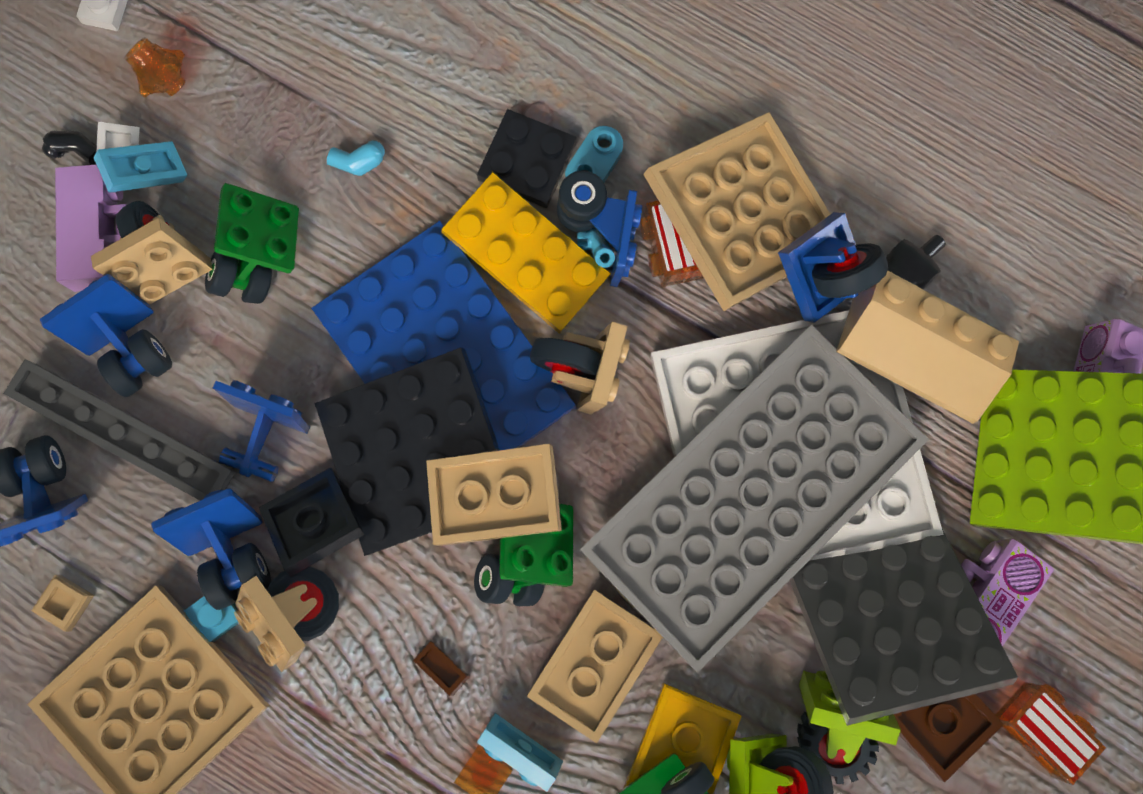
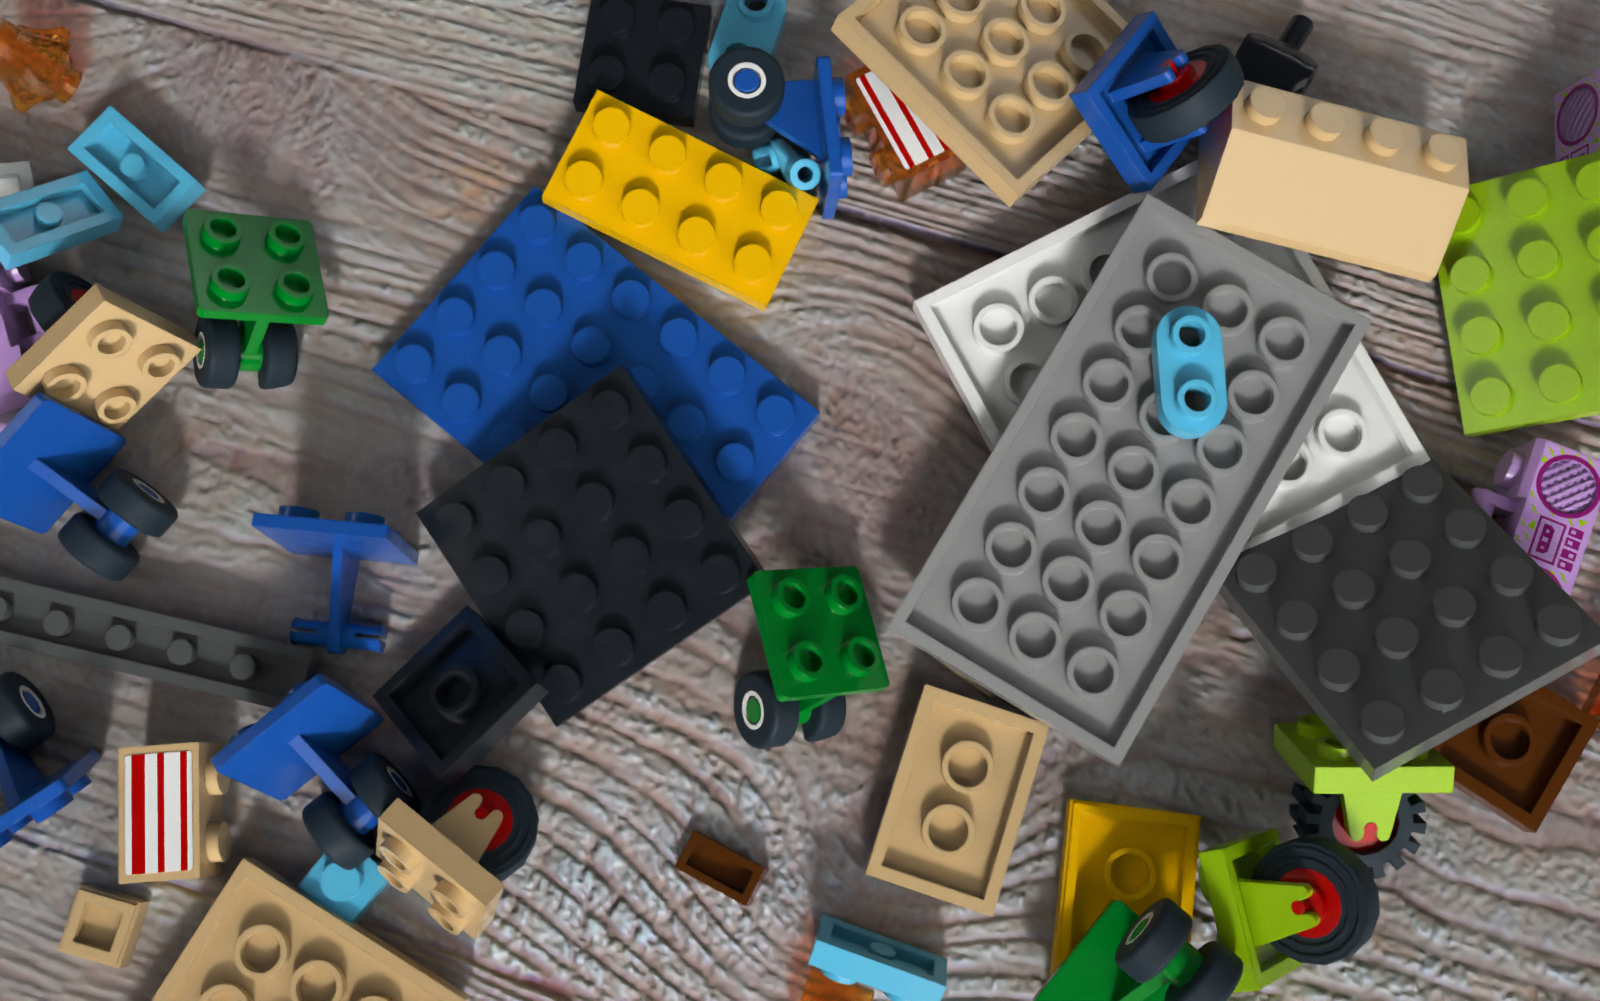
camera: 10 degrees left, 0 degrees up
(120, 547) = (171, 813): none -> brick
(202, 148) = (136, 169): none -> medium azure plate
(359, 161) = (385, 127): medium azure arm -> none
(493, 495) = (734, 575): tan plate -> none
(585, 364) = (819, 342): tan plate -> none
(807, 441) = (1188, 369): none -> medium azure plate

